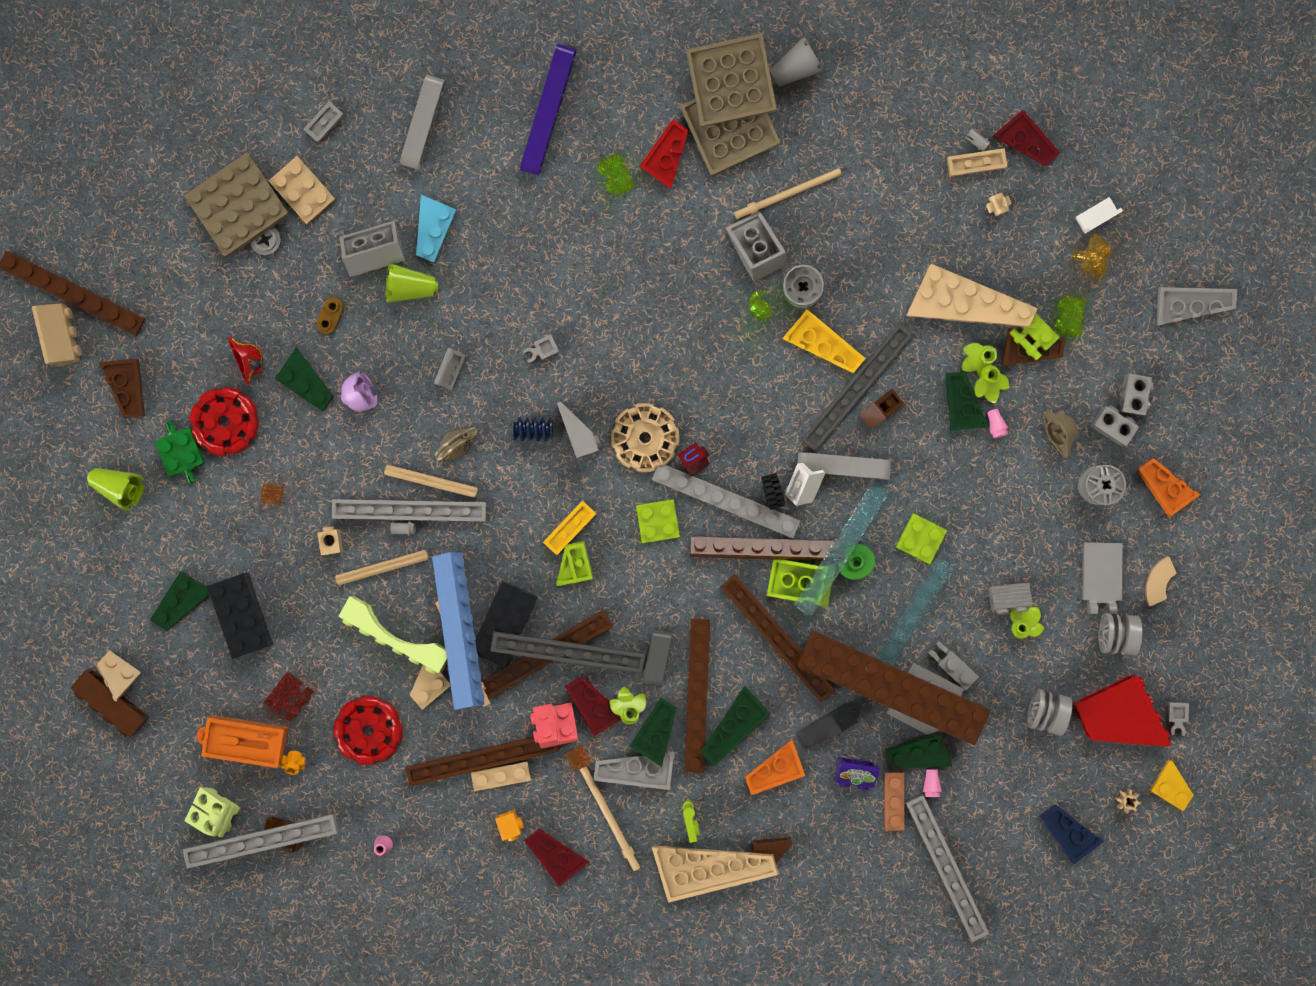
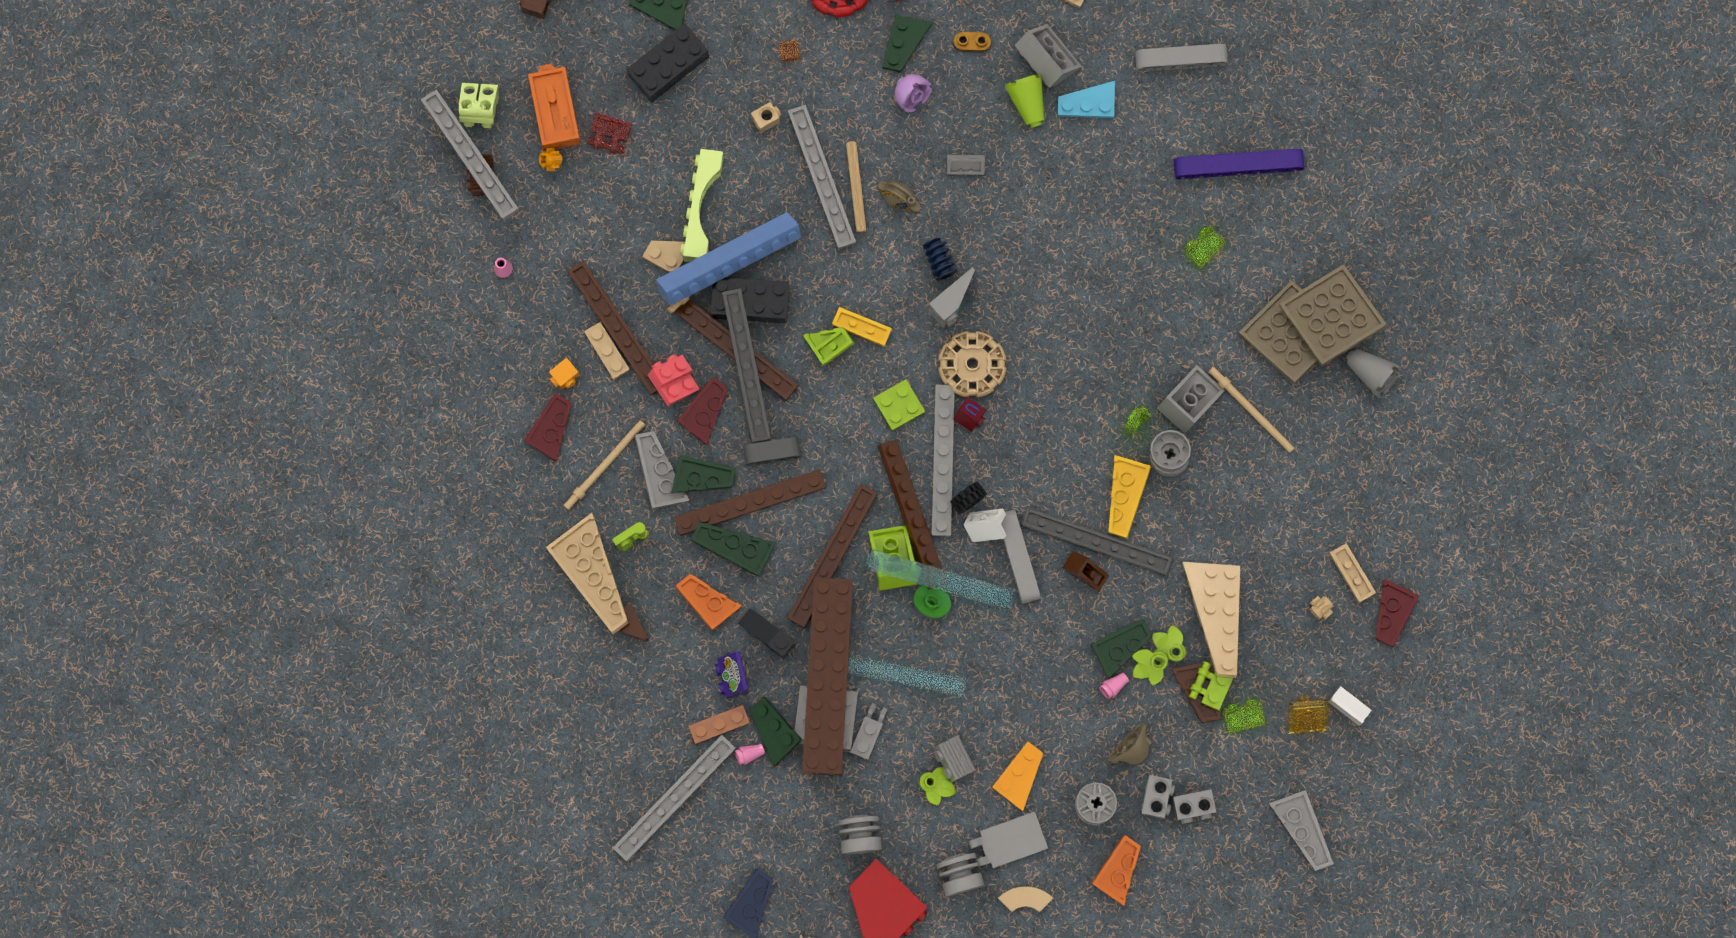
camera: 70 degrees right, 10 degrees down
(356, 733) = (601, 204): red plate -> none
(382, 567) = (759, 172): tan axle -> none
(403, 528) = (803, 179): light grey pin -> none
(544, 347) = (1018, 242): light grey plate -> none
(577, 757) = (650, 413): clear orange plate -> none
(628, 703) = (718, 439): lime plate -> none
(666, 154) = (1242, 285): red wing -> none
(921, 538) = (978, 655): lime plate -> none
(978, 140) = (1373, 566): light grey pin -> none
(1046, 543) = (1019, 776): none -> light orange wing

